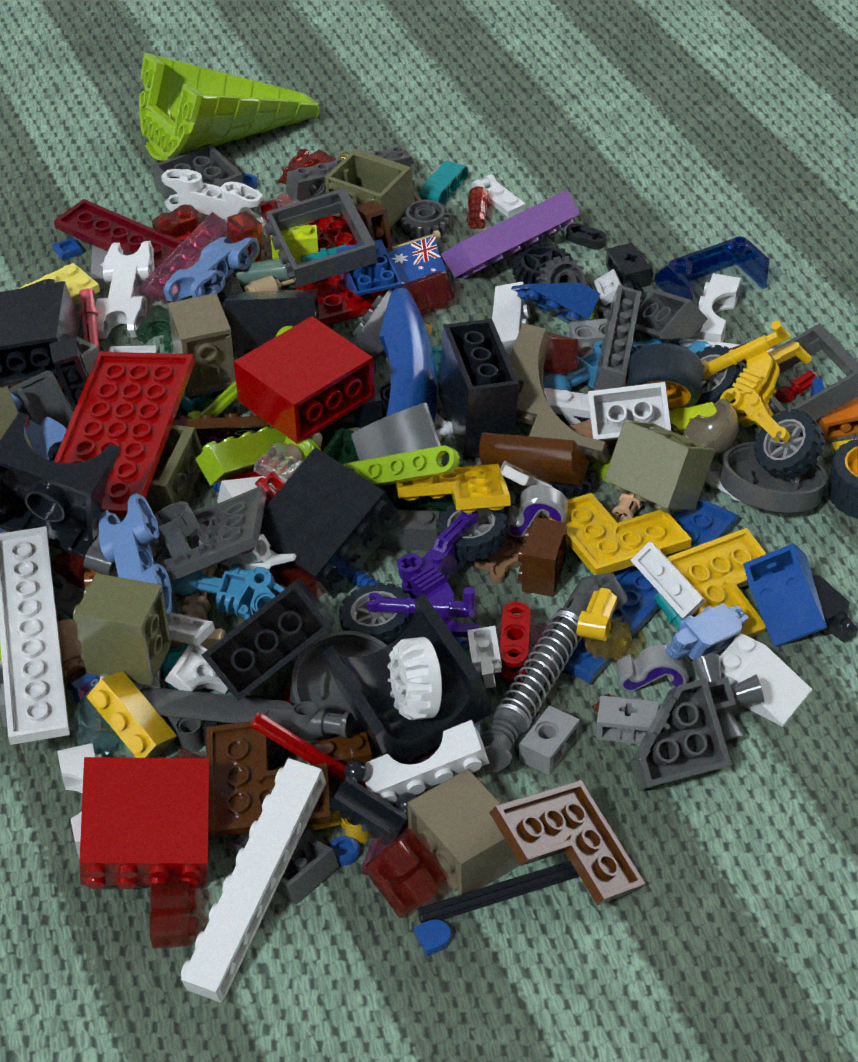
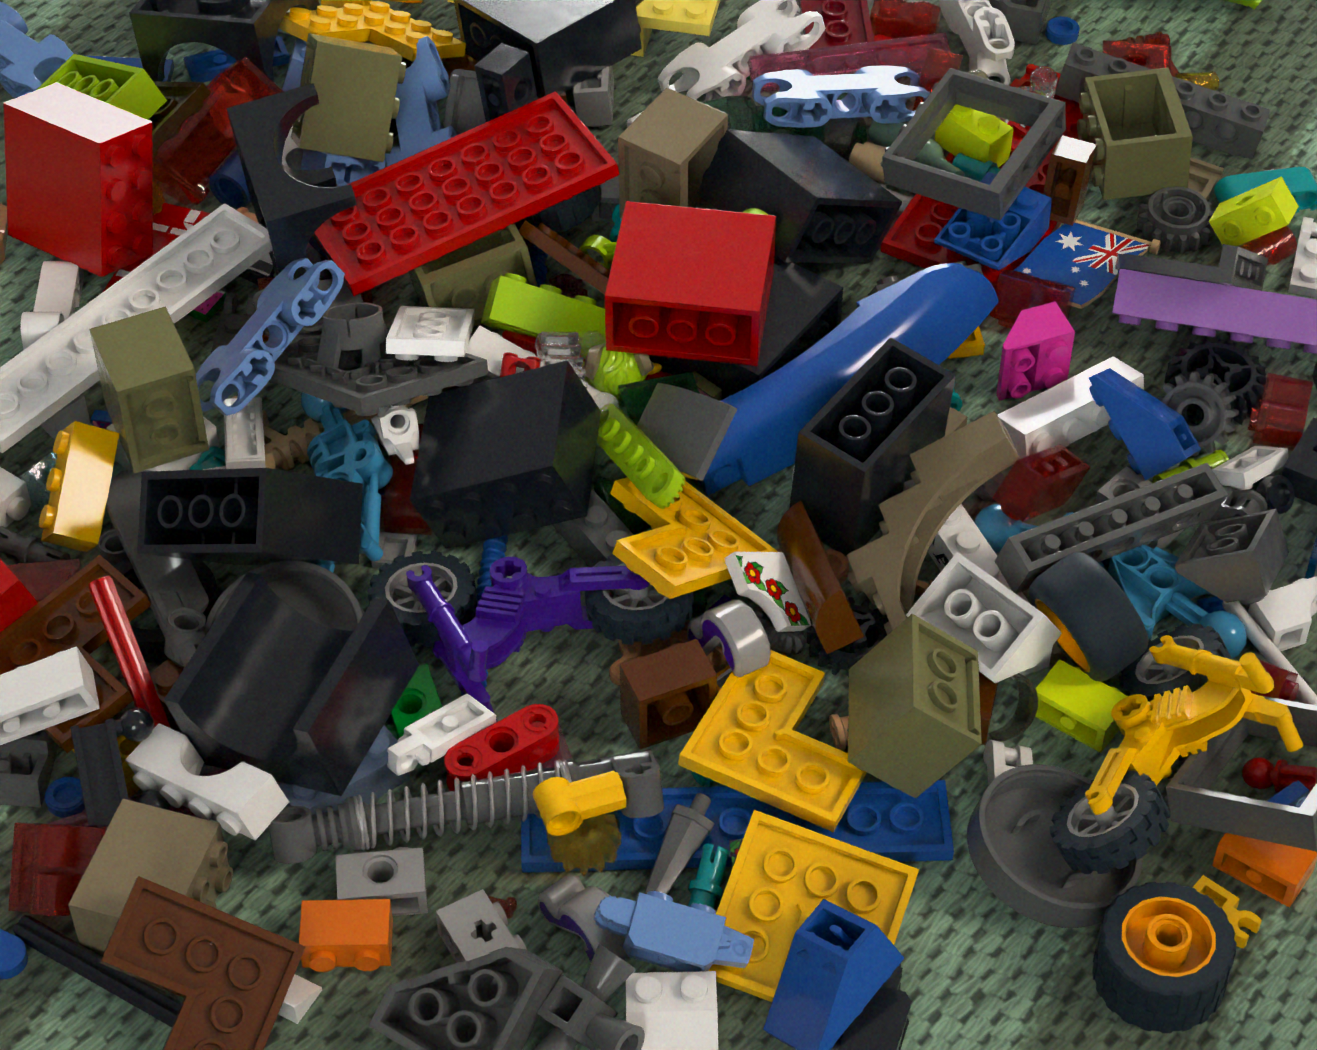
camera: 50 degrees right, 5 degrees up
(88, 314) = (660, 54): coral pin -> none
(215, 497) = (430, 332): none -> white plate
(415, 678) = (269, 679): white gear -> none
(460, 190) = (1254, 213): none -> neon yellow brick
(463, 300) = (1035, 352): none -> dark pink slope
(498, 211) = (1236, 268): none -> dark grey window
(570, 764) = (346, 934): none -> orange brick
(593, 259) = (1281, 412): none -> clear red brick
(643, 609) = (682, 839): none -> dark grey bar
(668, 580) = (721, 838): white plate -> none
(717, 430) = (1052, 730): dark tan cylinder -> none

